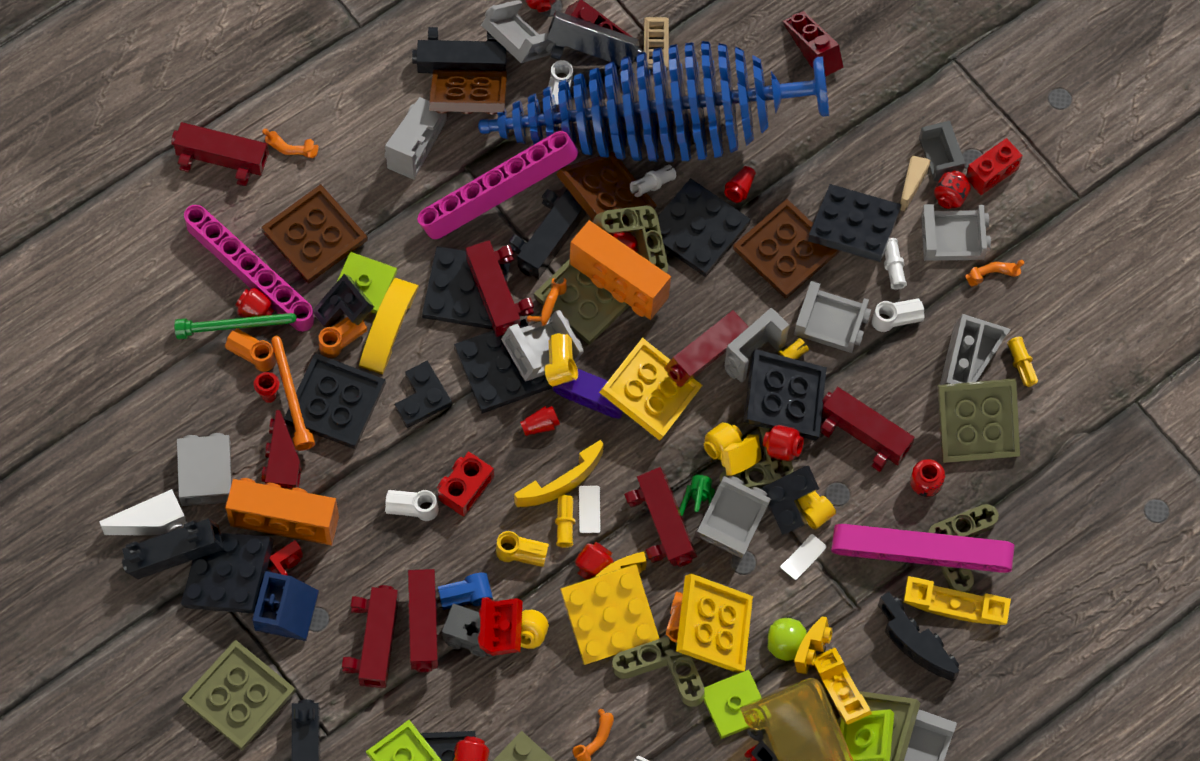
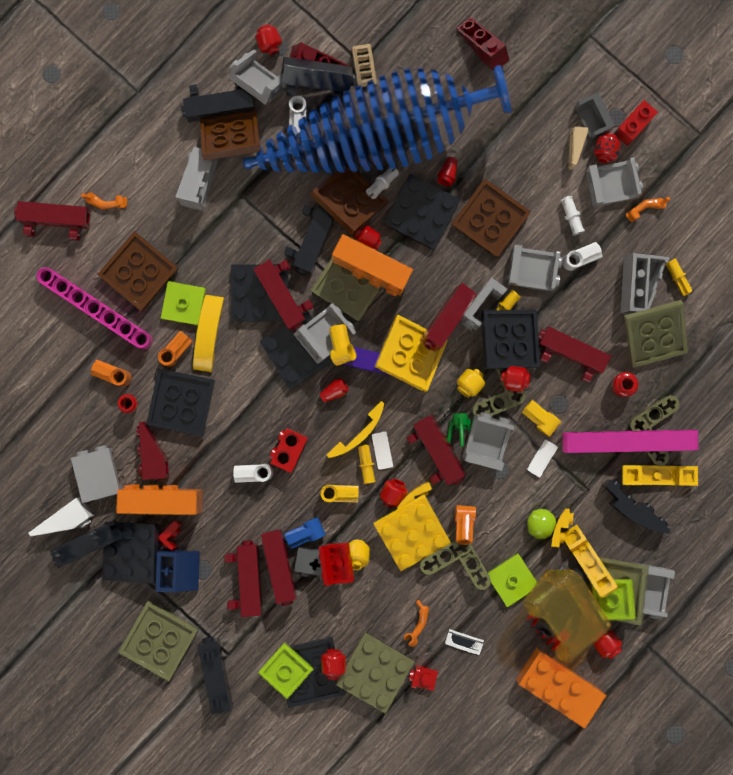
camera: 10 degrees left, 20 degrees up
(186, 328) = (59, 365): green piece -> none
(253, 304) = (105, 339): red head -> none
(302, 437) = (163, 438): orange piece -> none
(341, 299) = (171, 324): black plate -> none
(428, 398) = (249, 385): black plate -> none
(498, 185) = (276, 207): dark pink beam -> none
(556, 289) = (324, 299): orange piece -> none
(637, 225) = (378, 224): olive beam -> none
(714, 623) = (489, 529): yellow plate -> none
(741, 455) = (486, 394): yellow slope -> none
(785, 496) = (523, 419): black plate -> none
(854, 223) = (539, 189): black plate -> none

